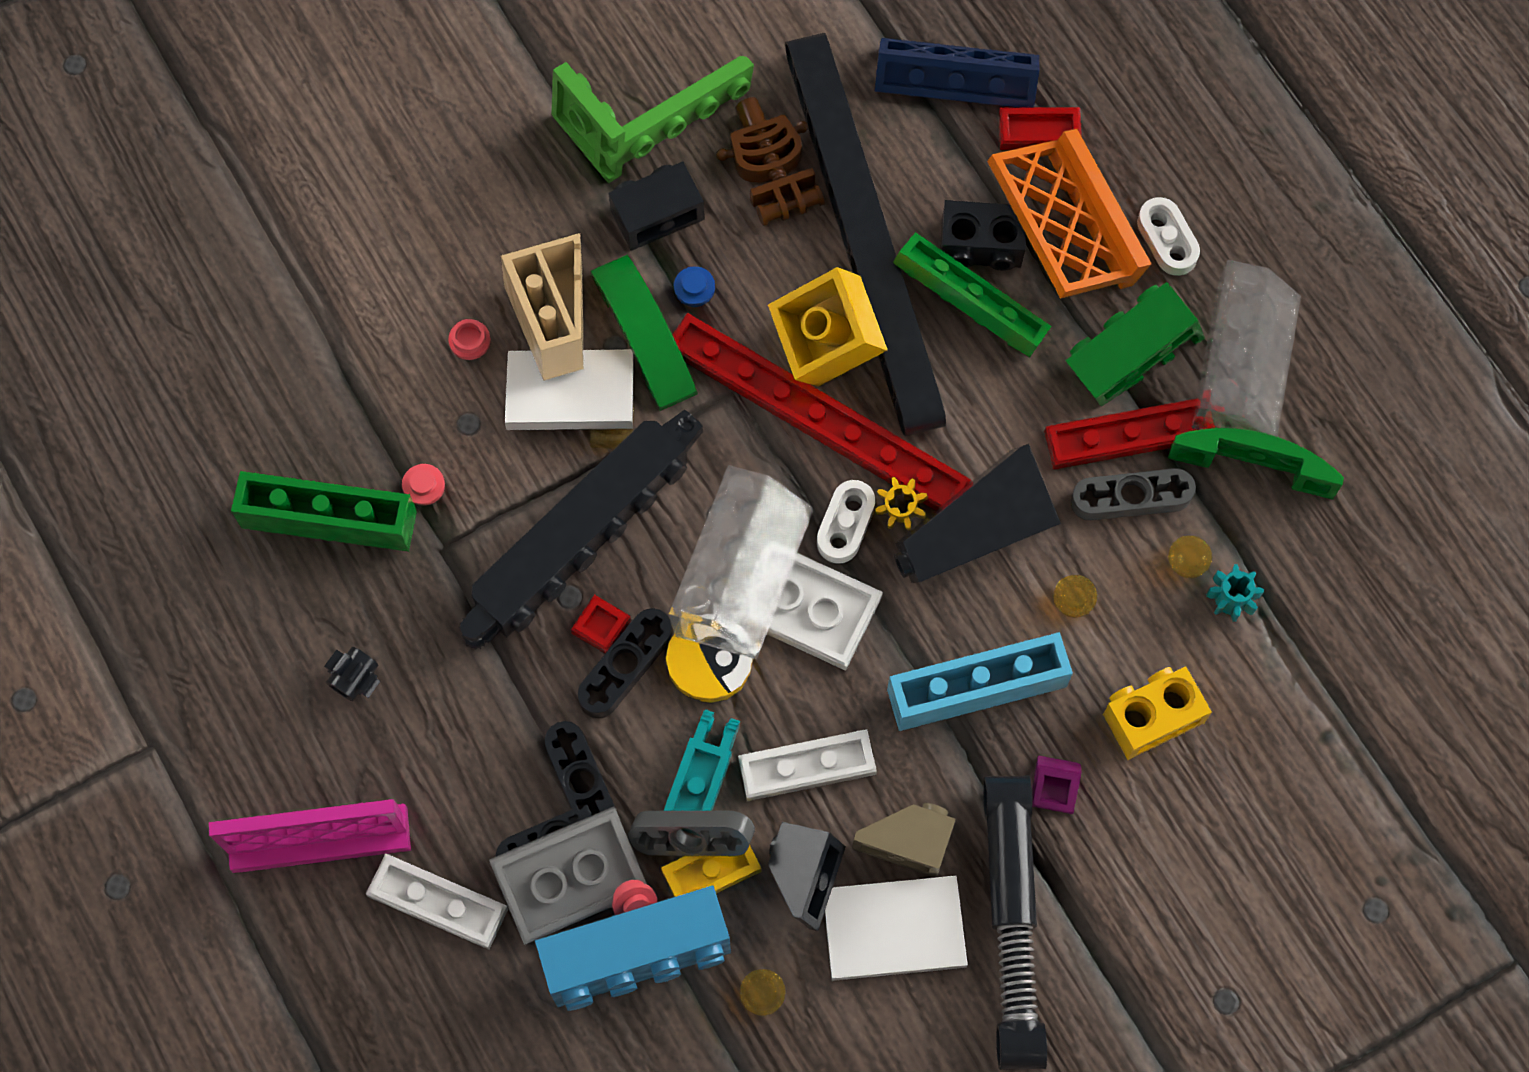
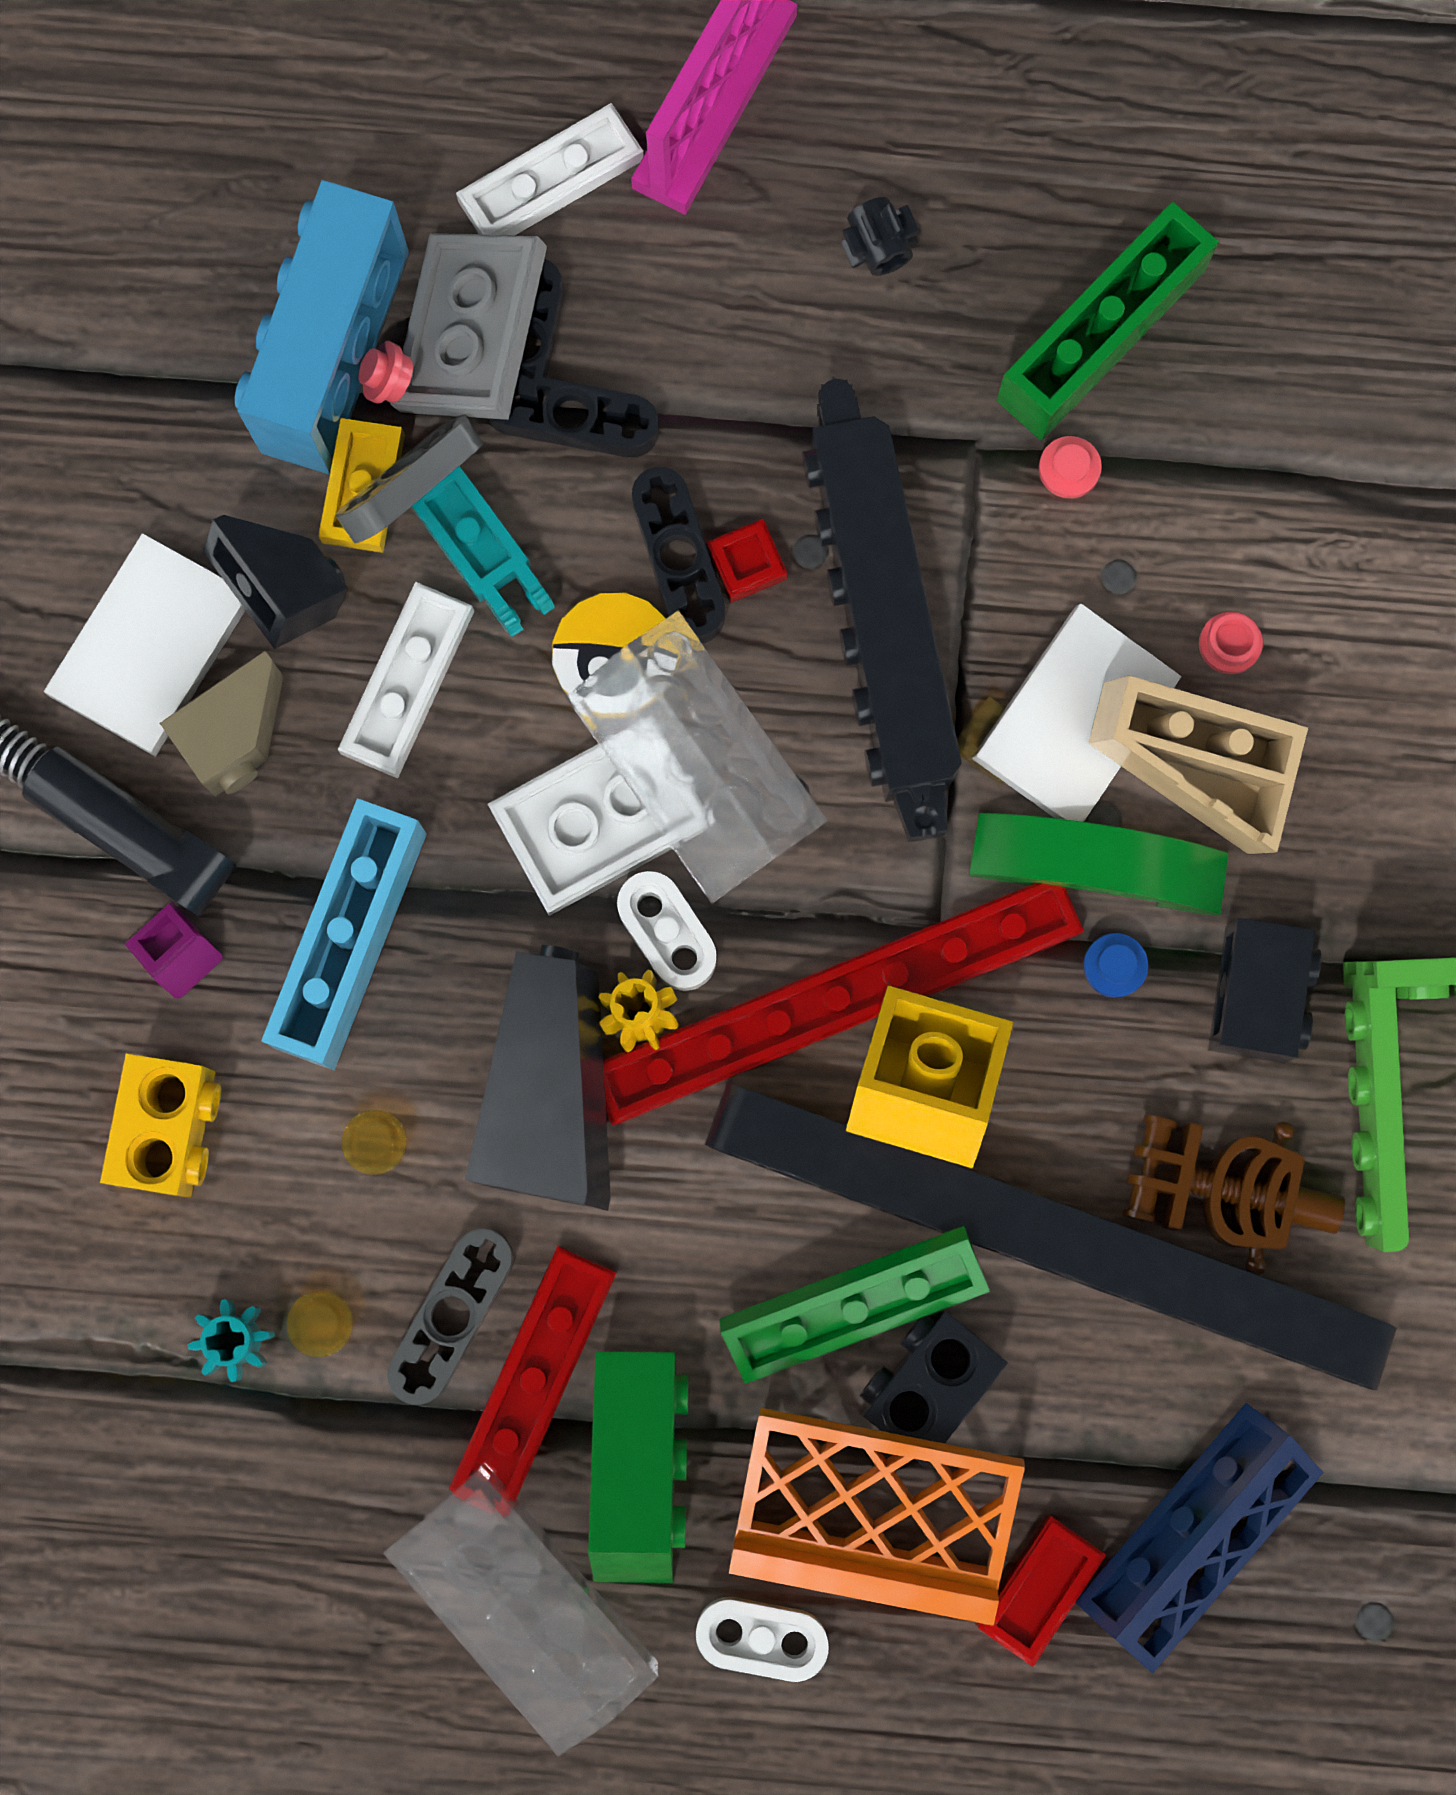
camera: 125 degrees right, 10 degrees up
(762, 992) = (185, 450): clear yellow plate -> none
(1311, 472) = (315, 1557): green slope -> none

